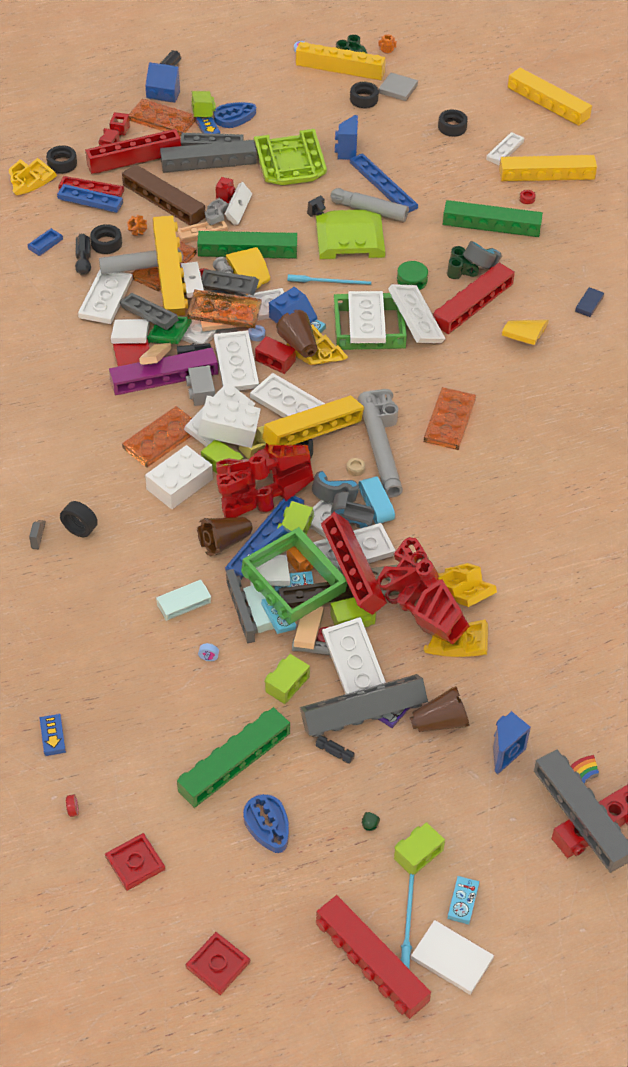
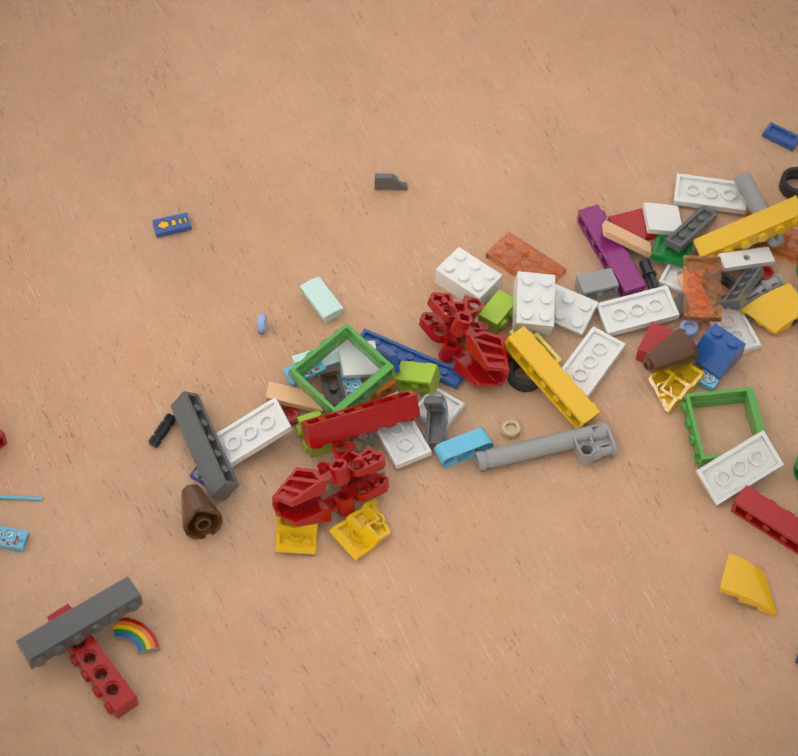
camera: 85 degrees right, 5 degrees up
(72, 805) = (99, 245): red tile -> none
(83, 253) = (767, 167): black piece -> none
(86, 519) = (401, 206): black tyre -> none
(135, 861) = (49, 296): red tile -> none
(222, 533) = (399, 319): reddish brown cone -> none
(233, 757) = (149, 352): green brick -> none
(239, 598) = (305, 344): dark grey plate -> none
(256, 823) = (84, 375): blue piece -> none
(287, 678) = (235, 385): lime brick -> none
(302, 278) = (783, 365): medium azure piece -> none
(326, 490) = (465, 407): dark grey animal -> none
(366, 317) = (717, 416): white plate -> none
(370, 821) = (84, 460): dark green hinge -> none
(419, 848) = (54, 498): lime brick -> none
(450, 418) = (595, 514): clear orange plate -> none
(509, 740) = (163, 563): blue slope -> none

